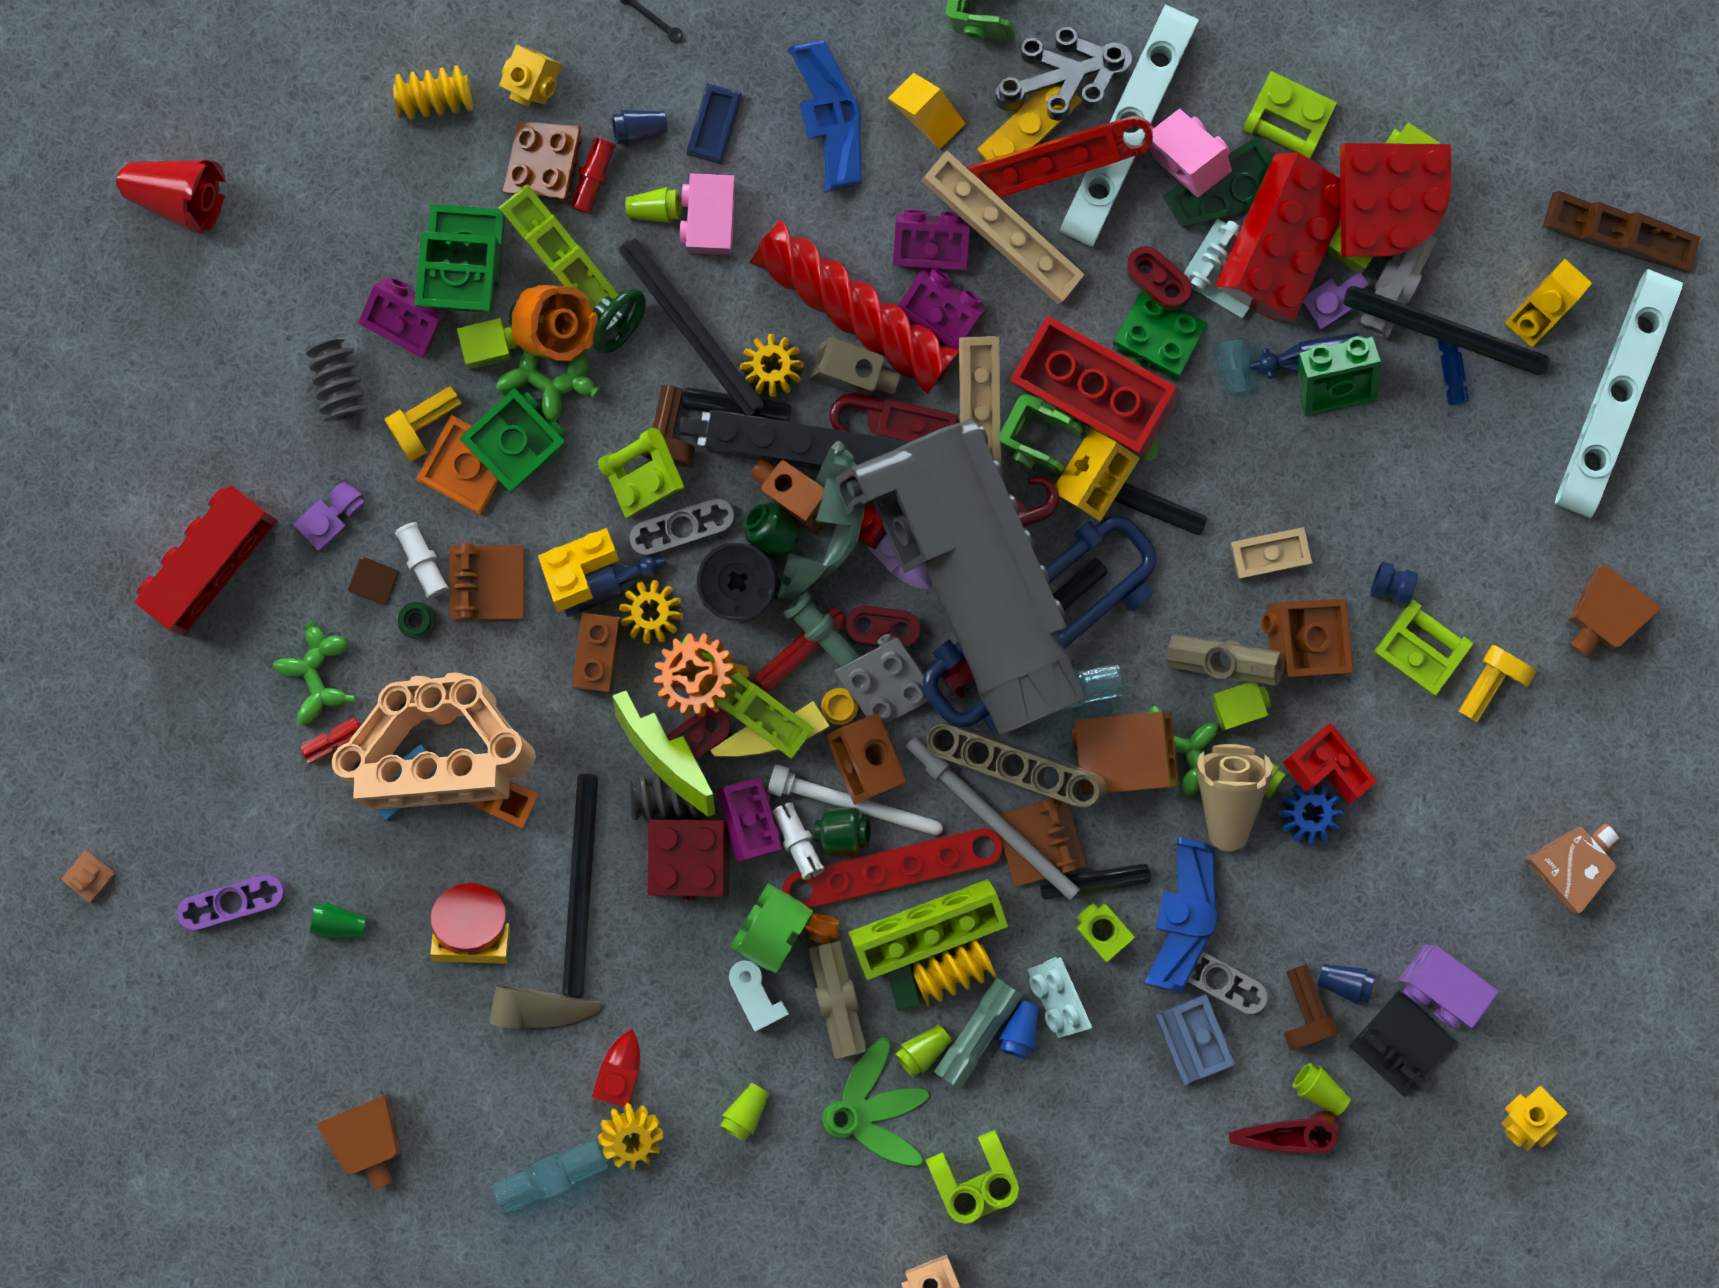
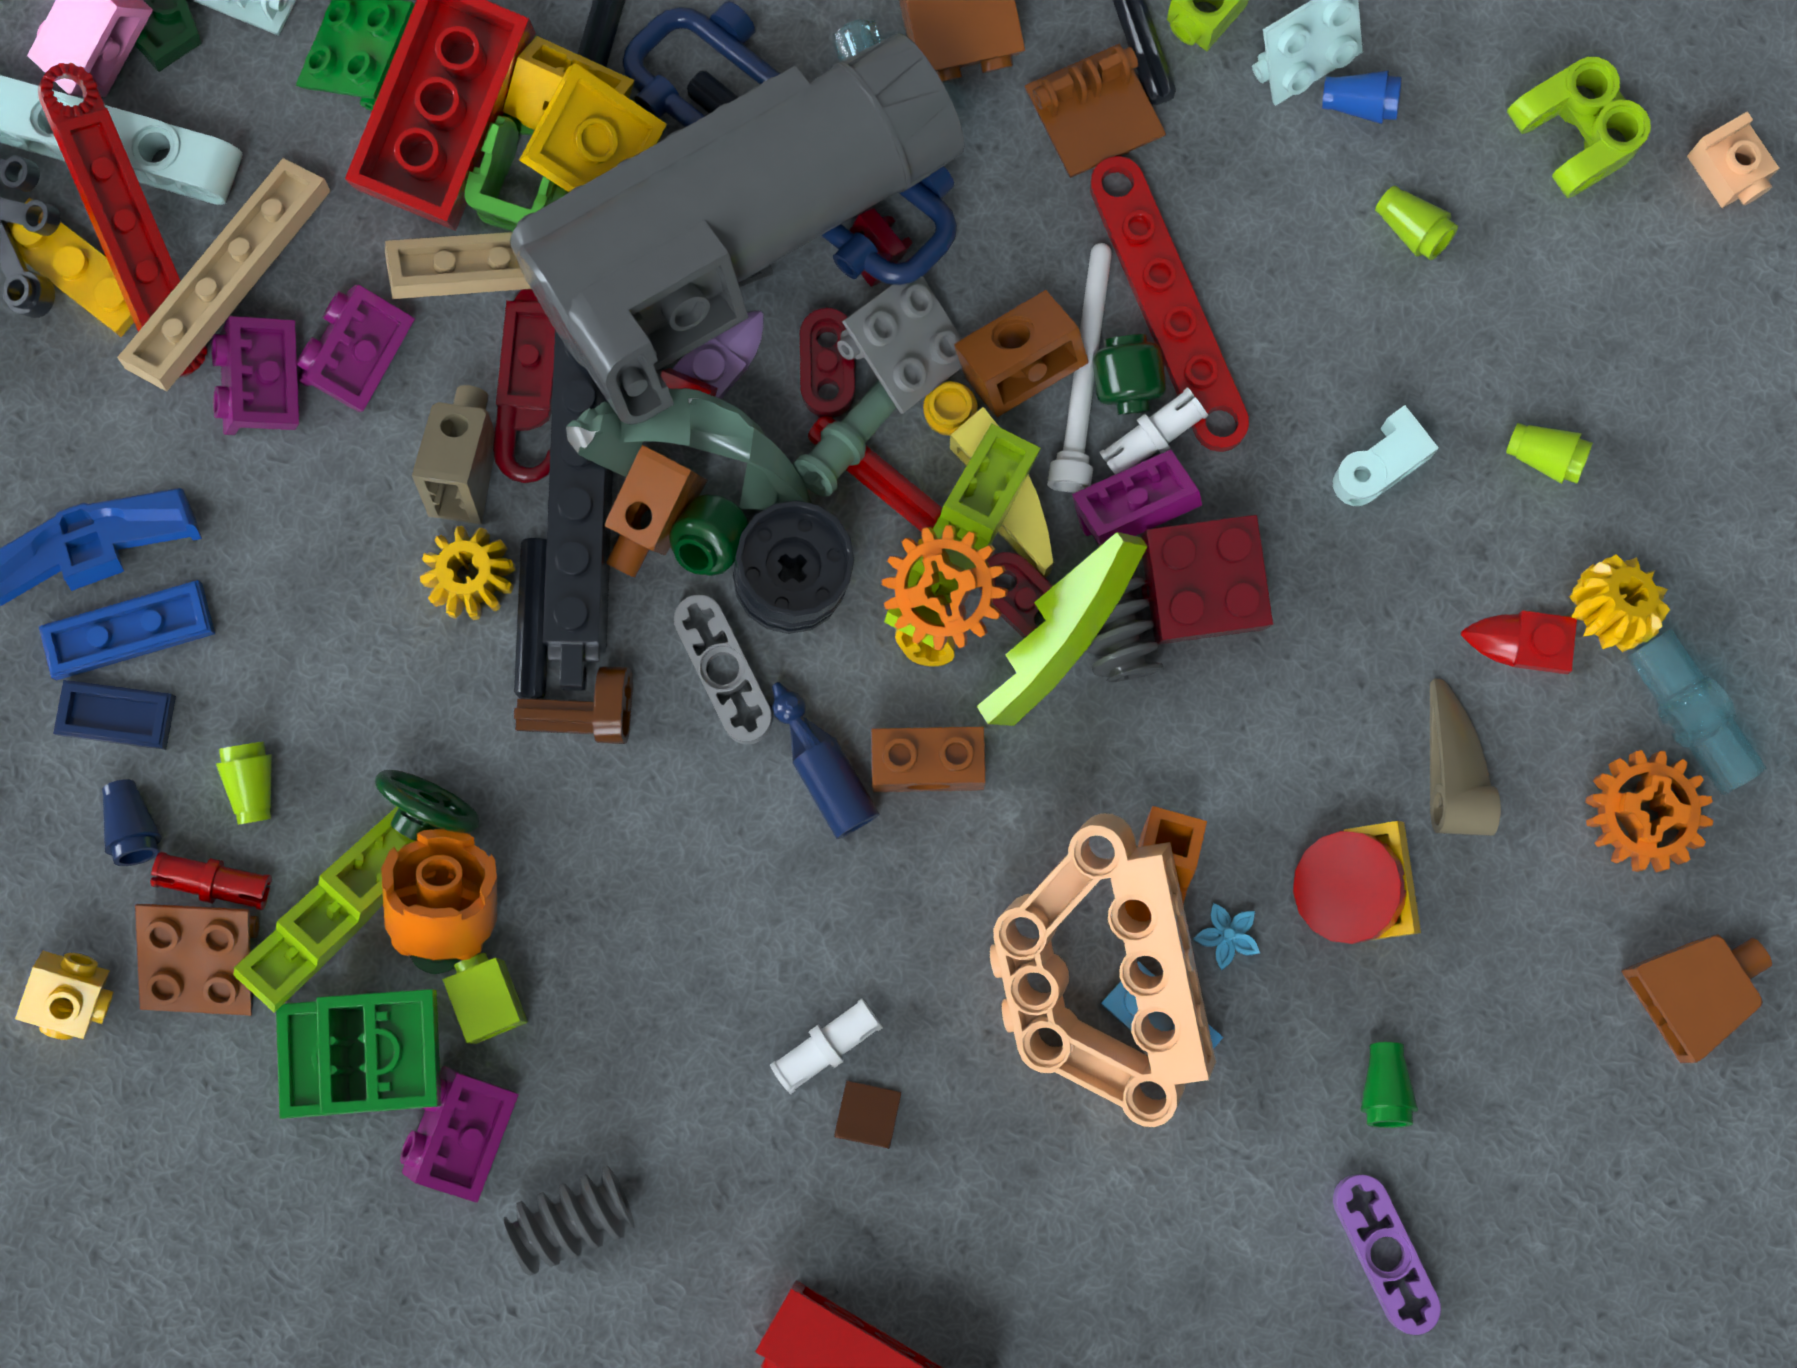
camera: 100 degrees left, 5 degrees down
(294, 667) = (1015, 1193): bright green piece -> none
(322, 523) = (790, 1210): medium lavender plate -> none
(324, 744) = (1127, 1149): red piece -> none
(405, 425) = (625, 1103): yellow piece -> none
(406, 614) = (931, 1027): dark green plate -> none
(432, 93) = (104, 1143): yellow piece -> none
(453, 835) = (1228, 935): none -> medium azure plant
(456, 470) = (673, 1003): orange tile -> none
(486, 582) = (844, 944): dark orange hinge -> none
(494, 1113) = (1644, 835): none -> orange gear
(514, 439) = (625, 931): green plate -> none
(552, 389) = (541, 888): bright green piece -> none
(569, 563) = (803, 821): yellow plate -> none
(580, 885) = (1268, 736): black axle -> none
(646, 484) = (666, 723): lime plate -> none
(663, 609) = (849, 673): yellow gear -> none
(691, 327) = (423, 698): black axle -> none
(710, 214) = (251, 696): bright pink brick -> none
(770, 137) = (126, 630): none -> blue tile
(771, 928) = (1289, 442): bright green brick -> none
(822, 928) = (1270, 382): orange plate -> none
(837, 1000) = (1368, 346): dark tan piece -> none
(853, 306) = (363, 466): red piece -> none
(862, 1112) = (1515, 296): bright green plant -> none
(903, 987) = (1329, 263): dark green piece -> none
(927, 110) = (62, 410): yellow slope -> none
(928, 929) = (1249, 232): lime brick -> none
(939, 769) = (1017, 256): light grey bar -> none
(952, 970) = (1297, 196): yellow piece -> none
(973, 1040) = (1412, 166): sand green axle -> none
(1034, 765) = (1014, 119): dark tan beam -> none
(1048, 484) = (588, 131): none -> yellow plate
(1160, 279) = (274, 55): dark red plate -> none

